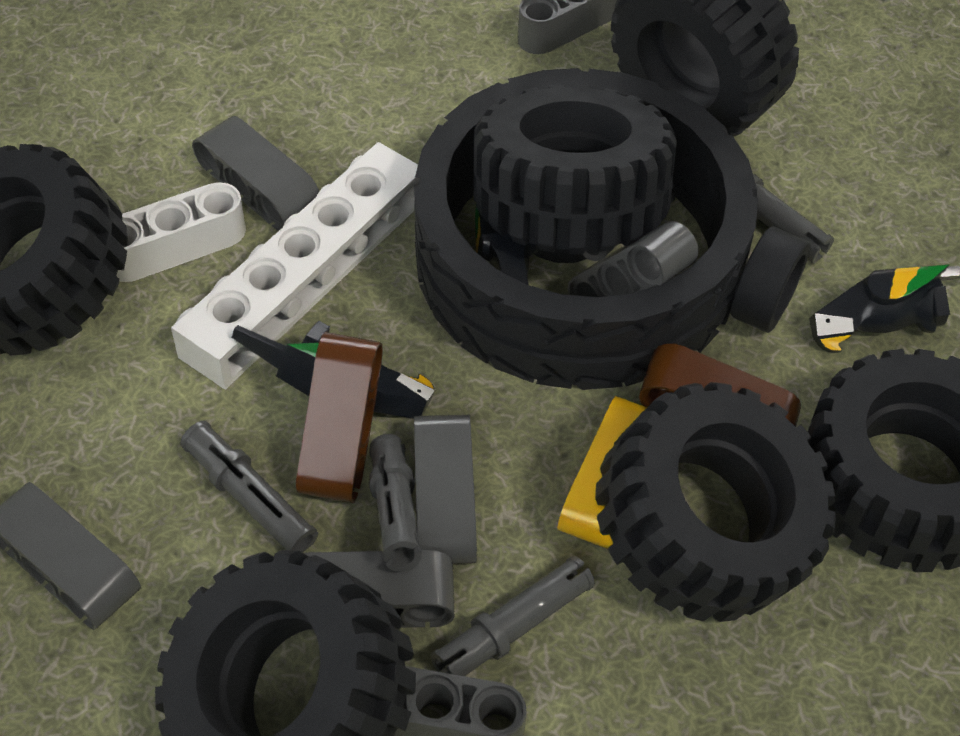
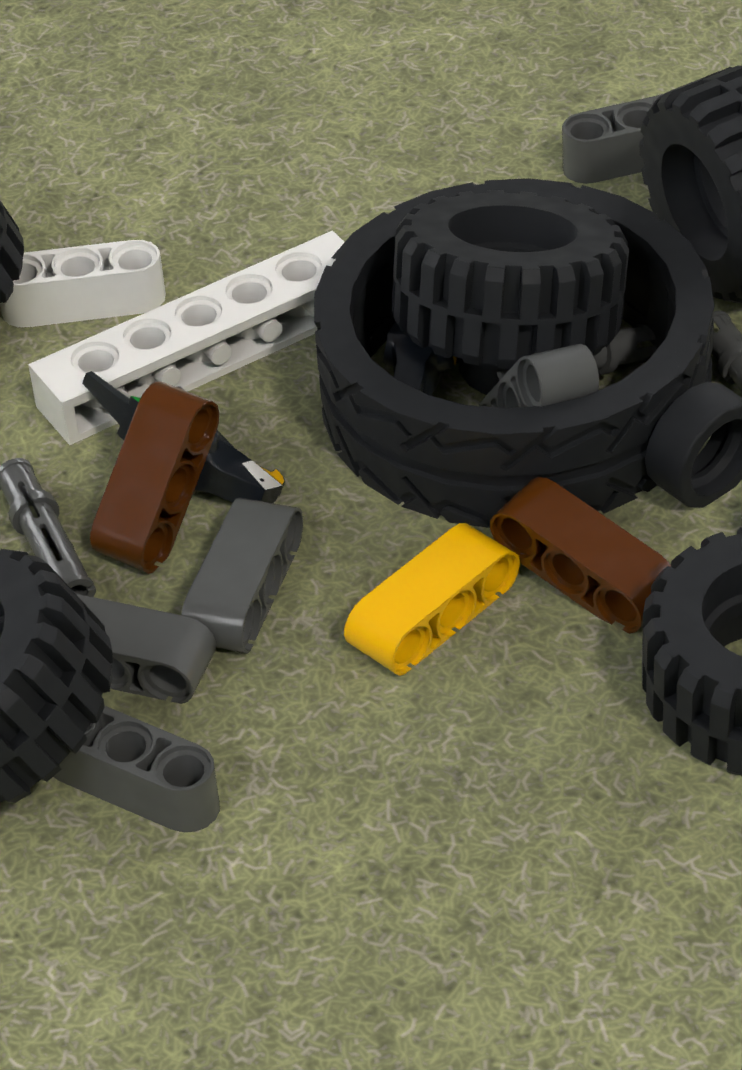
camera: 25 degrees right, 10 degrees down
(257, 169) = (192, 236): dark grey beam -> none
(392, 486) = (173, 573): dark grey pin -> none
(495, 632) = (266, 705): dark grey pin -> none
(764, 464) = (526, 560): black tyre -> none

